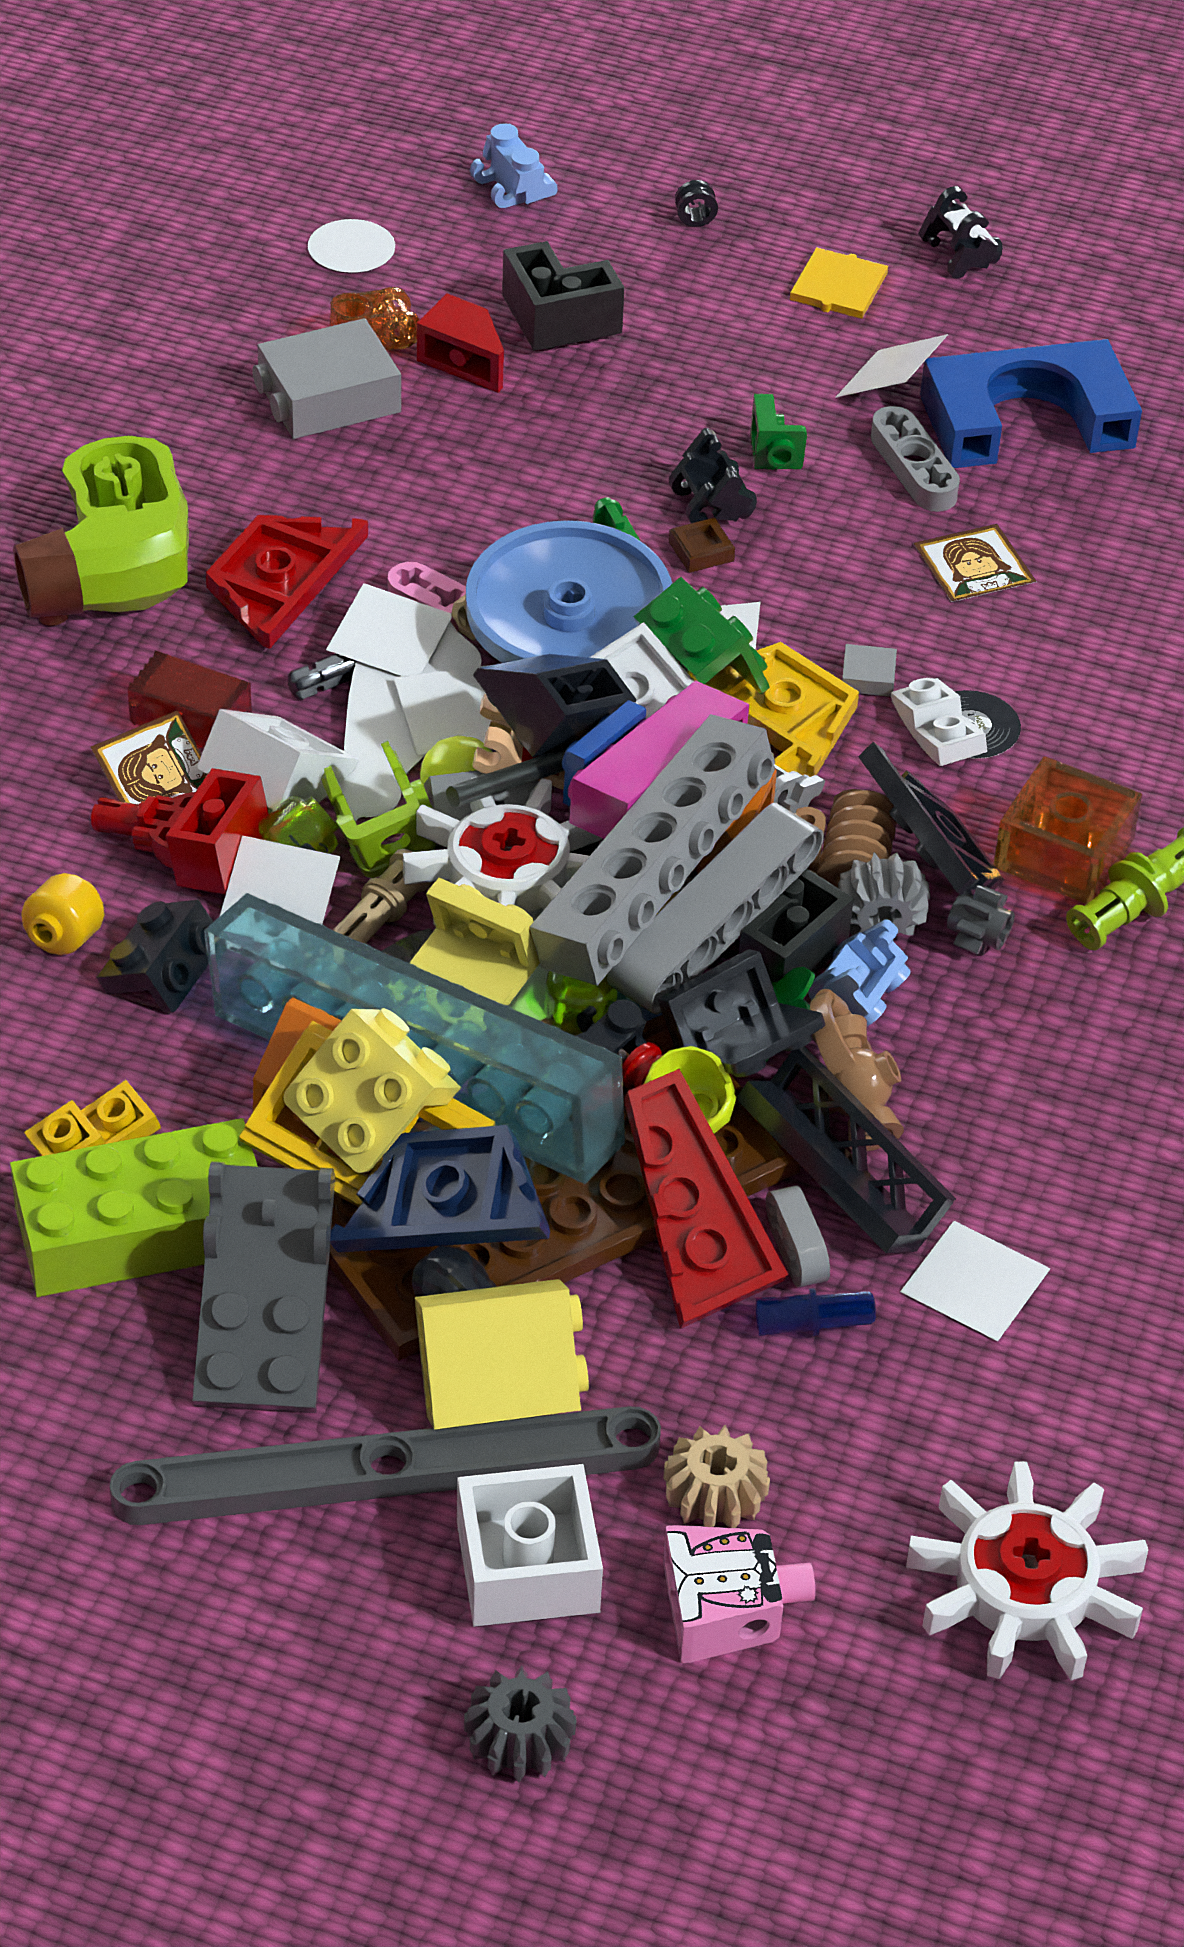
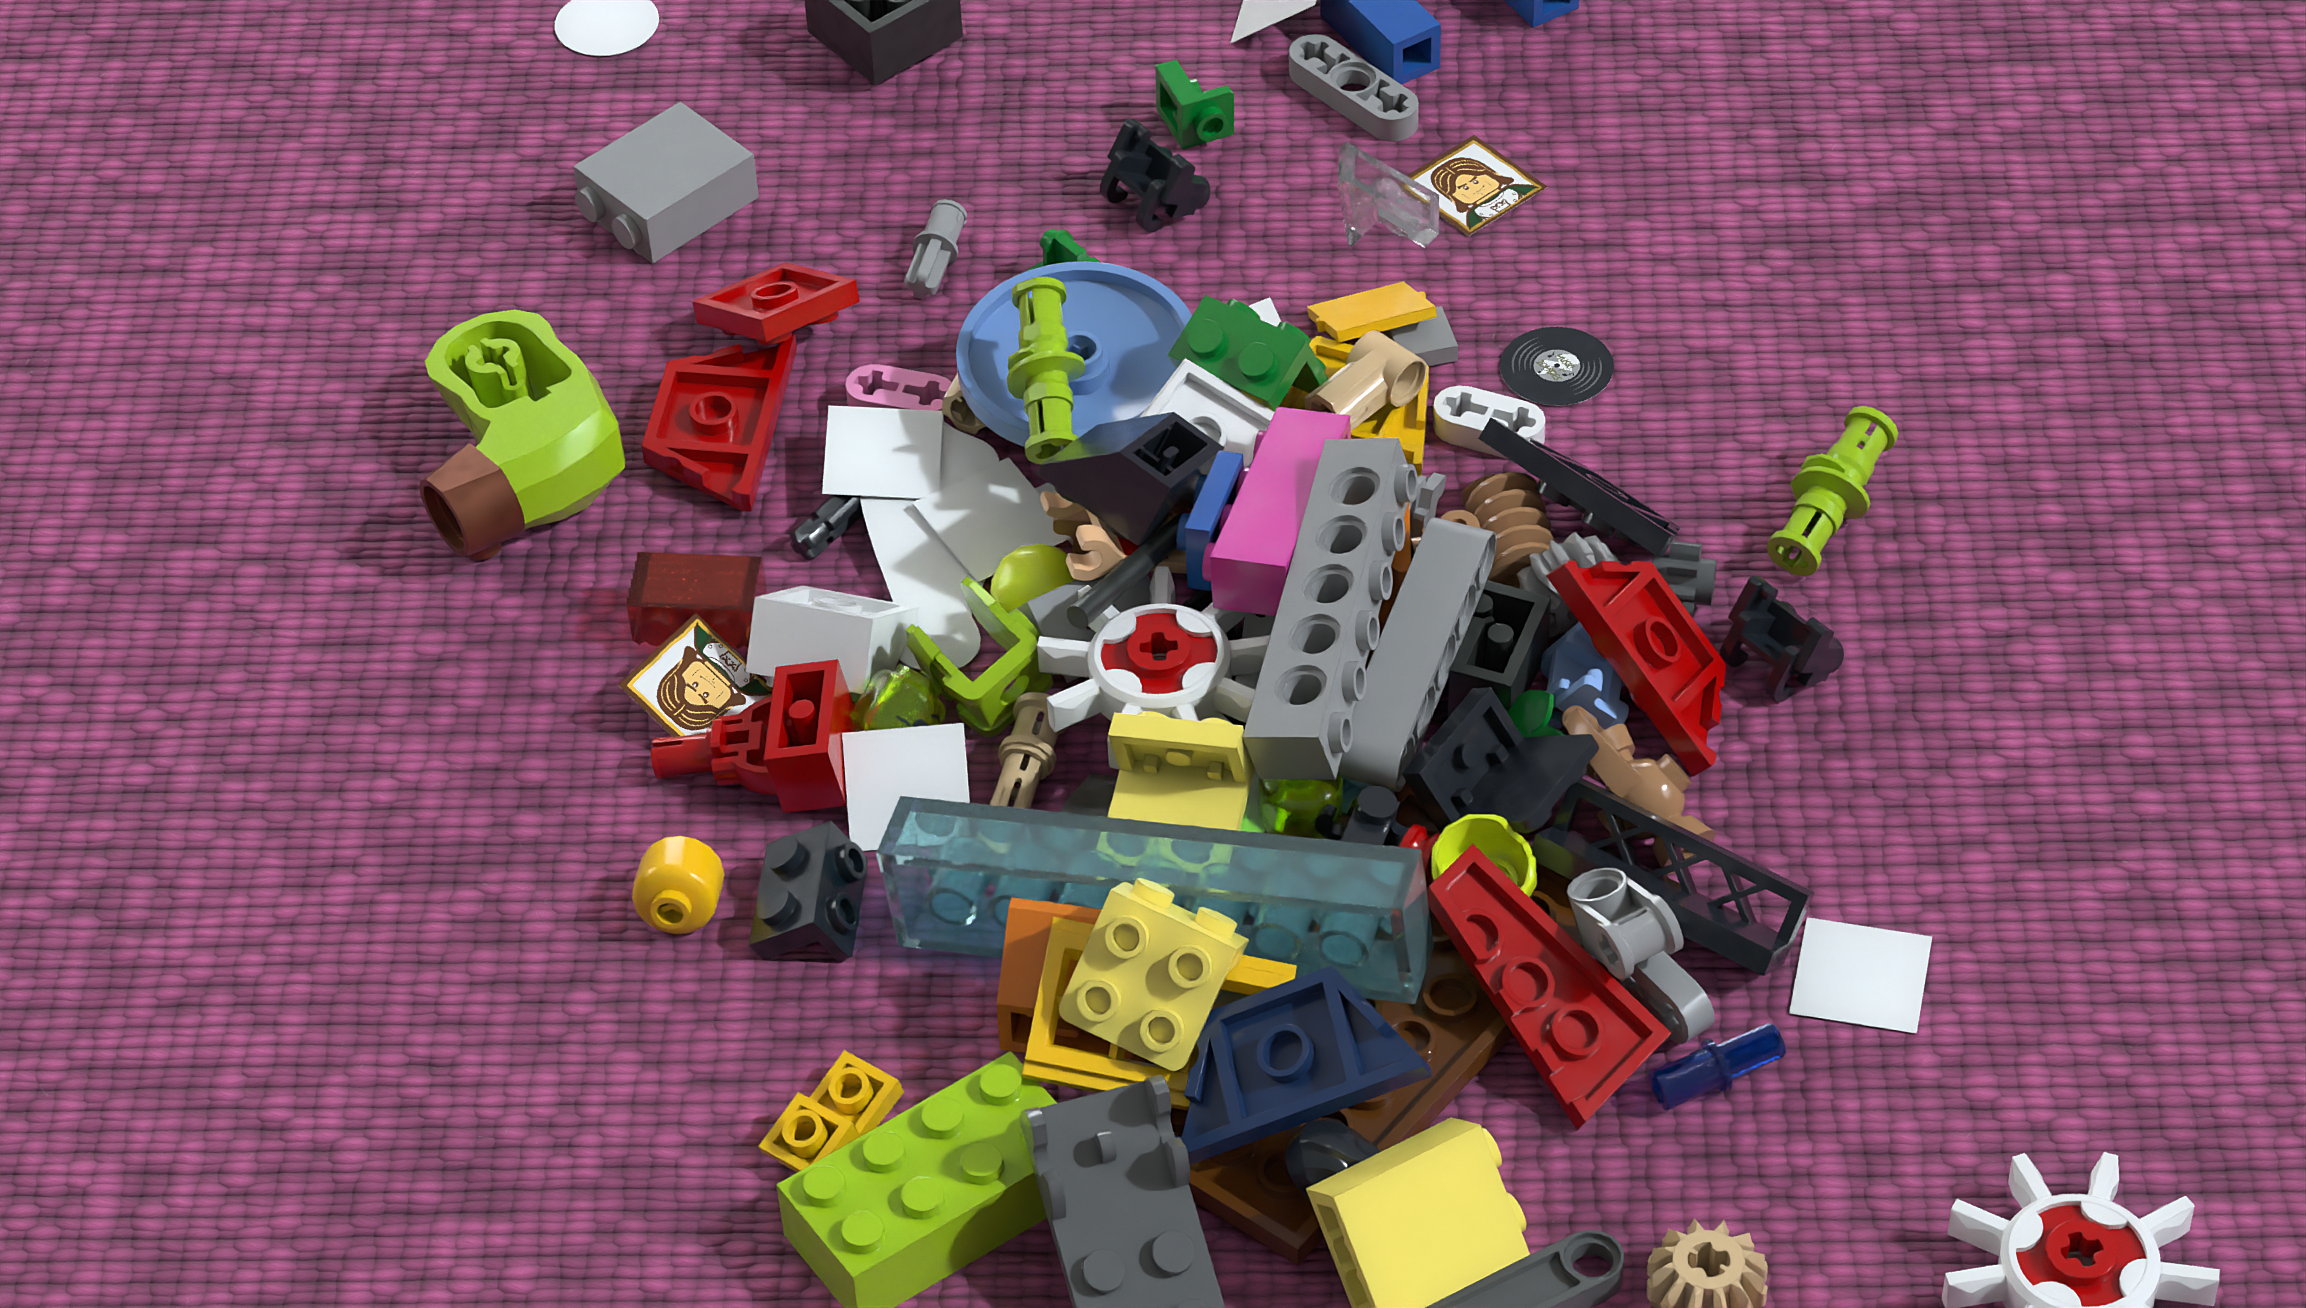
camera: 15 degrees left, 0 degrees up
(364, 492) = (776, 303): none -> red plate
(380, 314) = (685, 85): clear orange piece -> none
(461, 342) = (797, 98): red slope -> none
(514, 488) = (935, 248): none -> light grey axle
(527, 593) = (1043, 367): none -> lime piece
(701, 545) = (1170, 252): reddish brown tile -> none
(777, 1168) = (1621, 920): none -> light grey piece
(805, 683) = (1373, 375): none -> tan piece
(836, 636) = (1370, 311): none -> yellow piece
(883, 542) = (1377, 192): none -> clear slope
(900, 746) = (1476, 410): none -> white beam
(919, 963) = (1652, 648): none -> red wing
(936, 721) = (1517, 368): white slope -> none
(1037, 991) = (1781, 639): none -> black piece
(1067, 830) = (1727, 452): clear orange brick -> none

